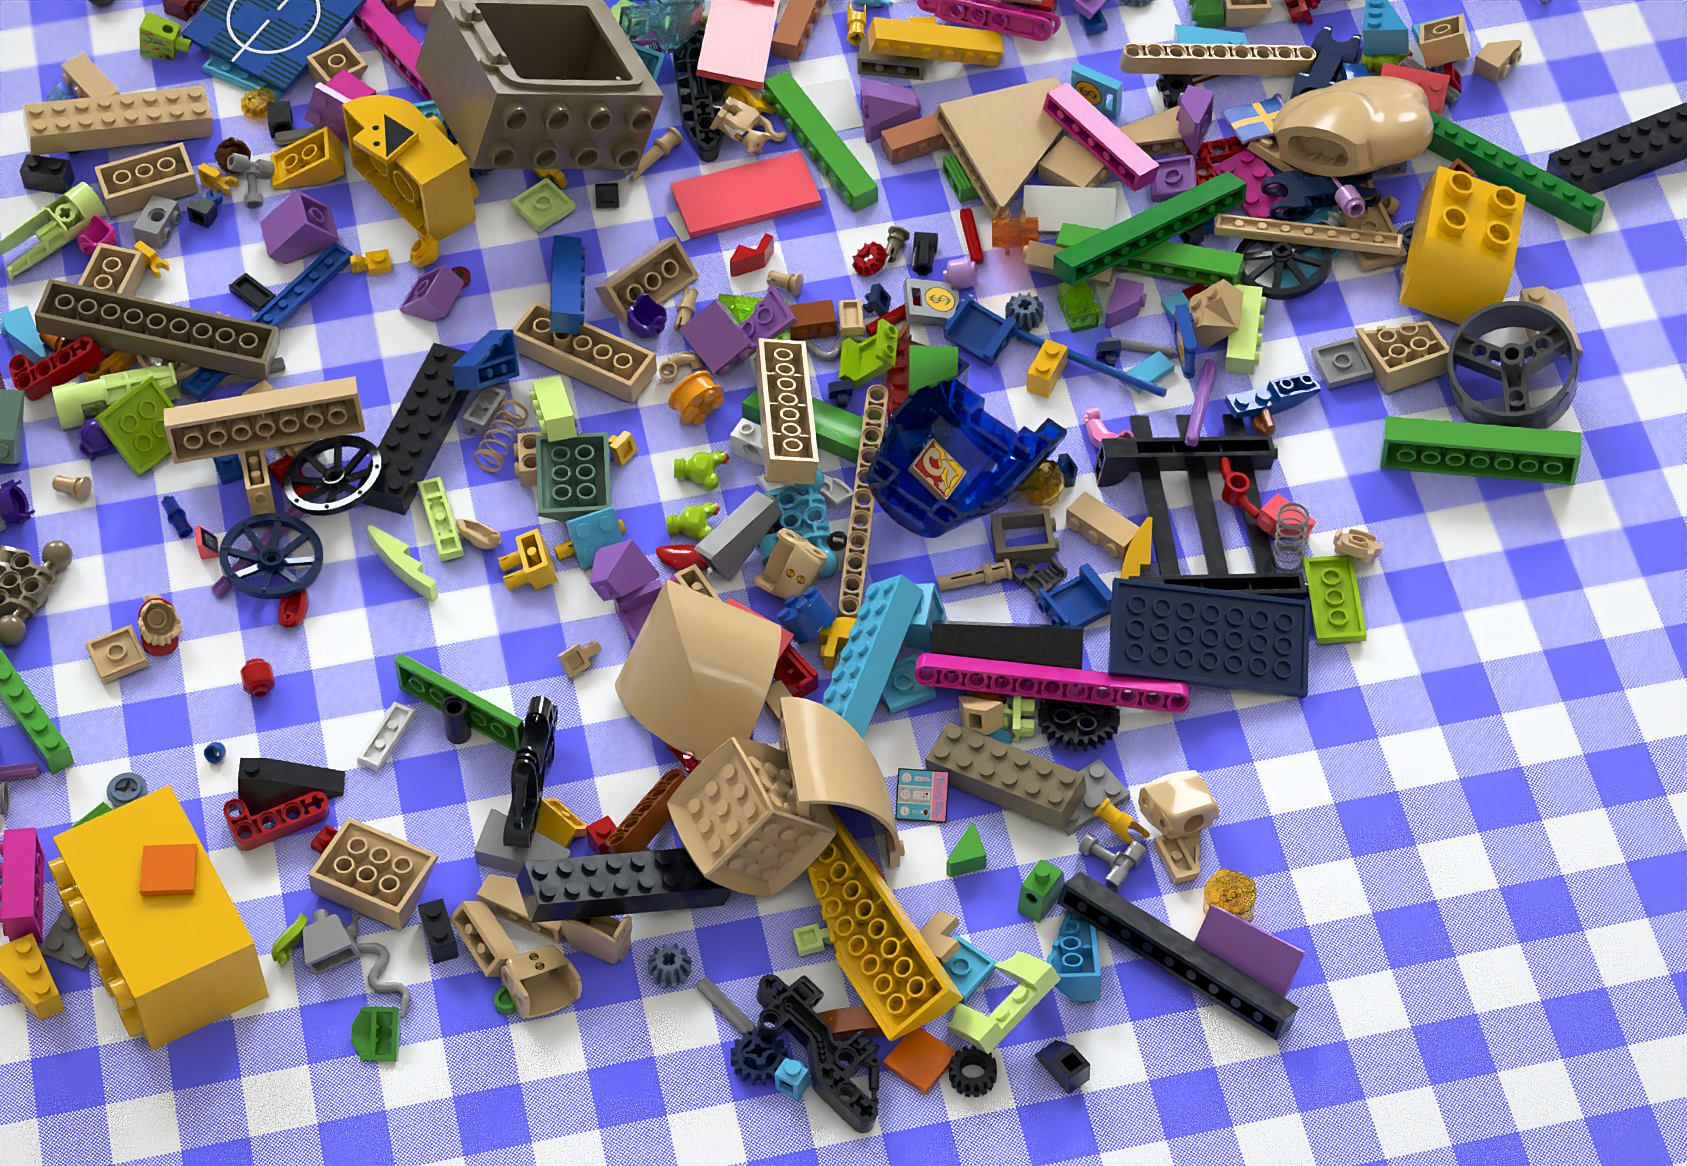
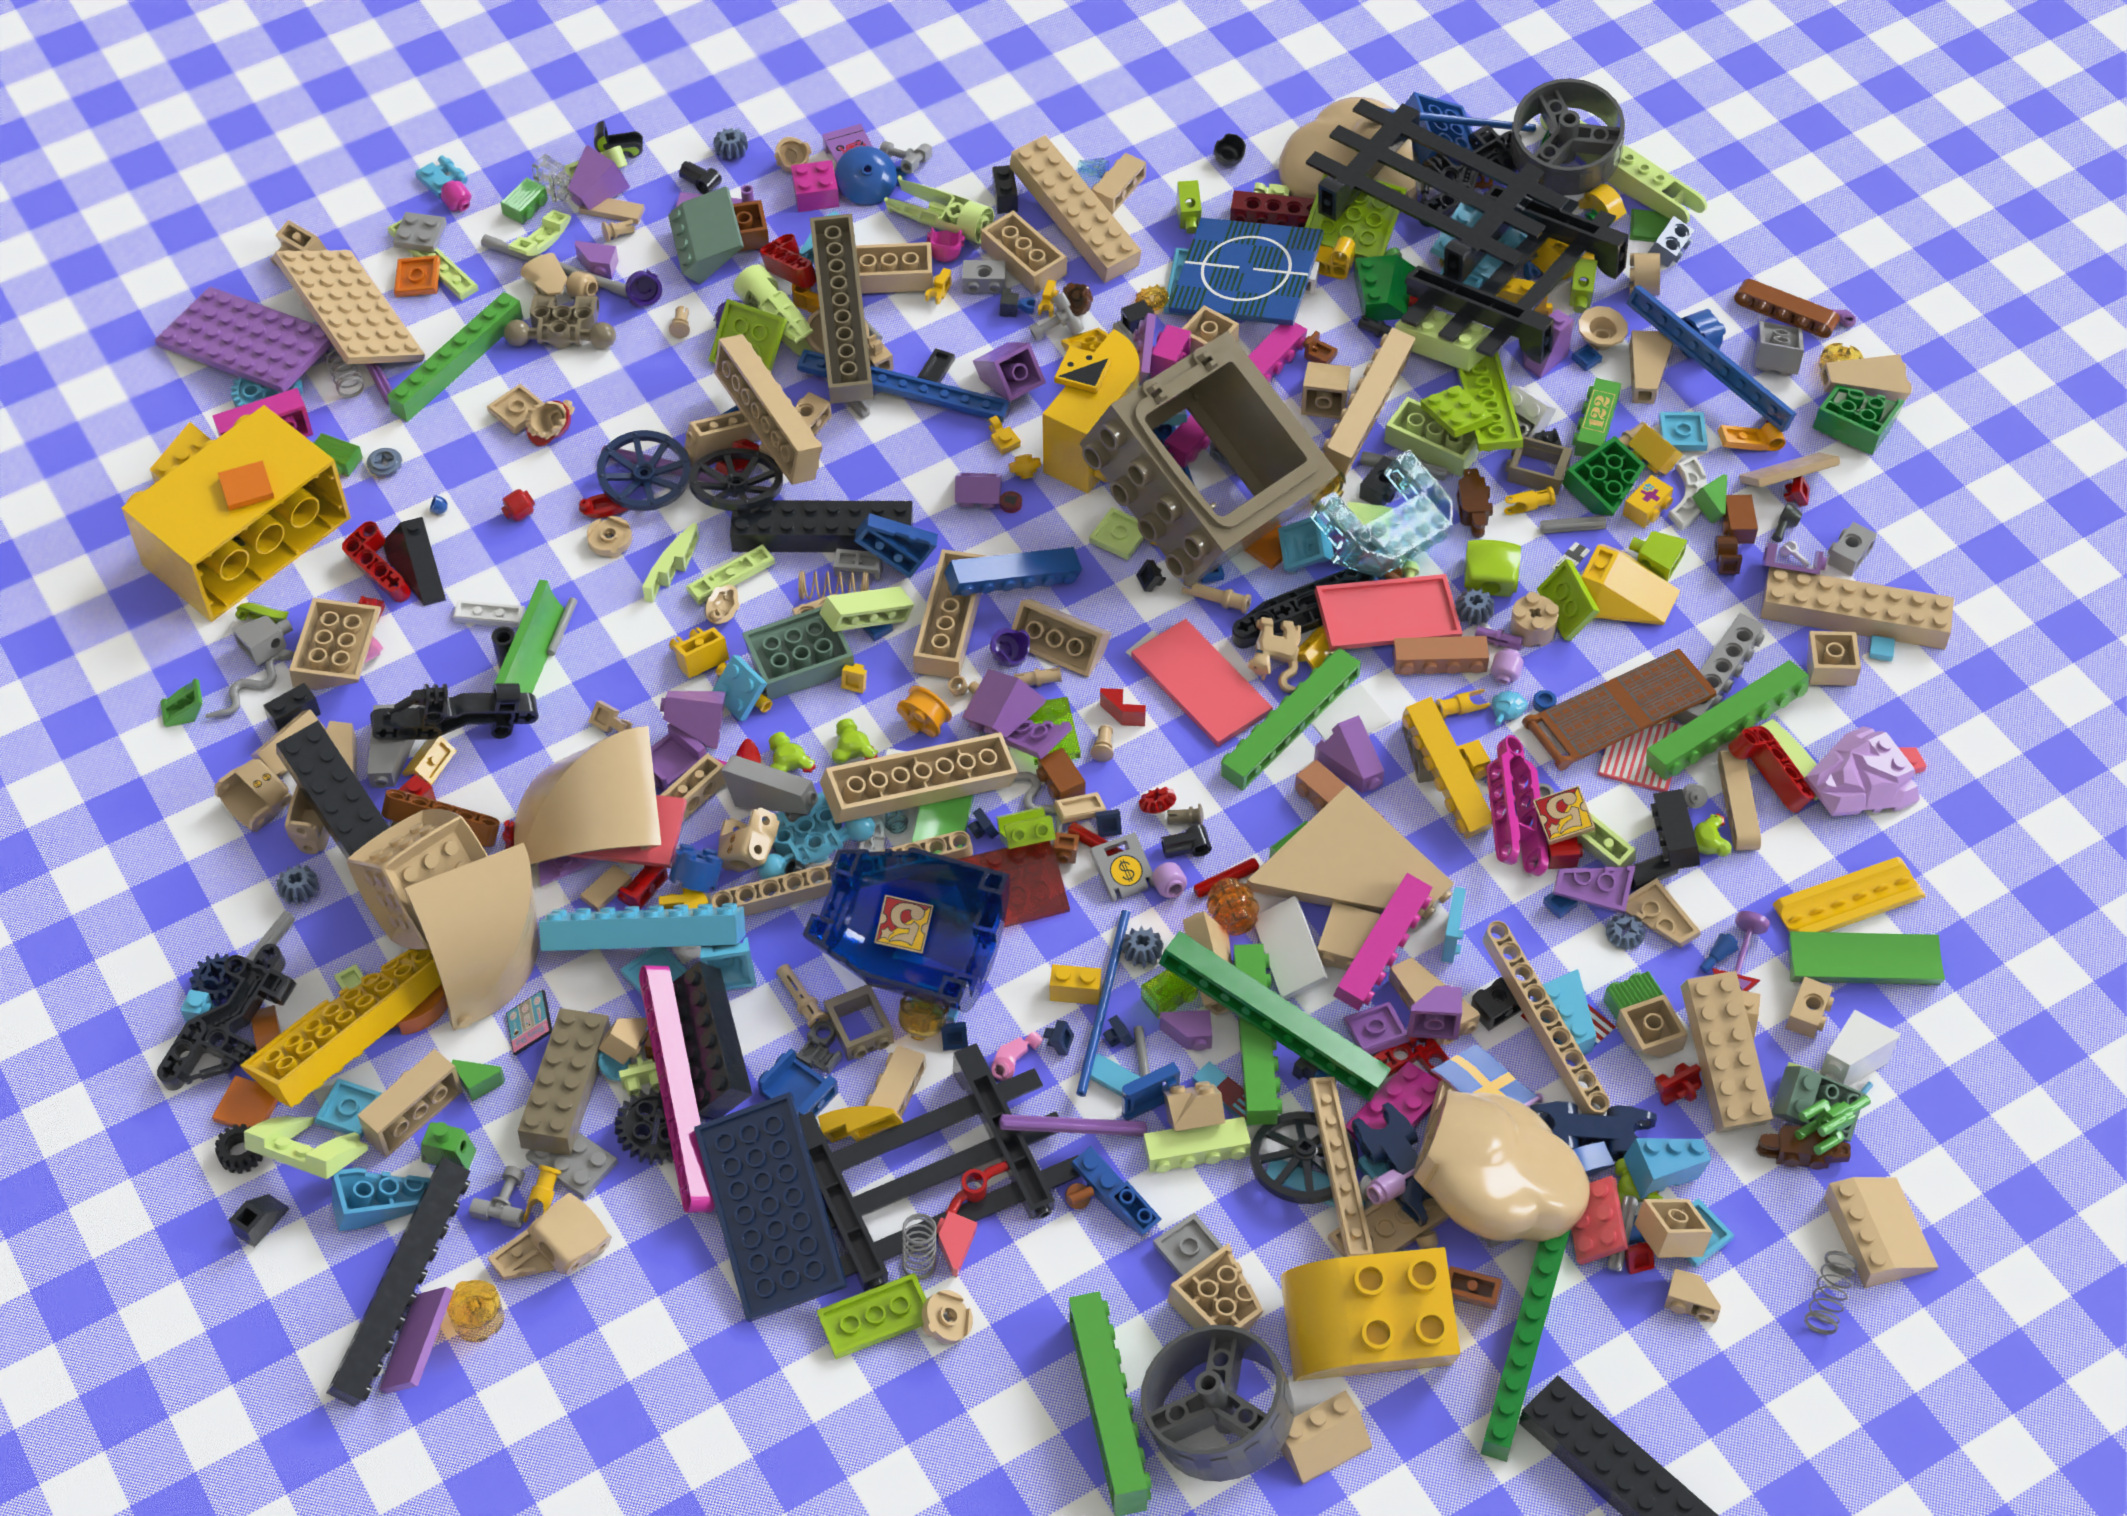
camera: 70 degrees right, 0 degrees up
(176, 516) = (672, 398): clear blue axle -> none
(206, 543) = (650, 421): slope -> none
(338, 621) = (613, 546): none -> tan plate
(931, 366) = (976, 859): bright green slope -> none
(936, 936) = (366, 1076): tan tile -> none
(979, 330) = (1100, 913): blue panel -> none
(984, 905) = (410, 1103): none -> tan brick
(1097, 395) = (1059, 1037): none -> dark blue tile

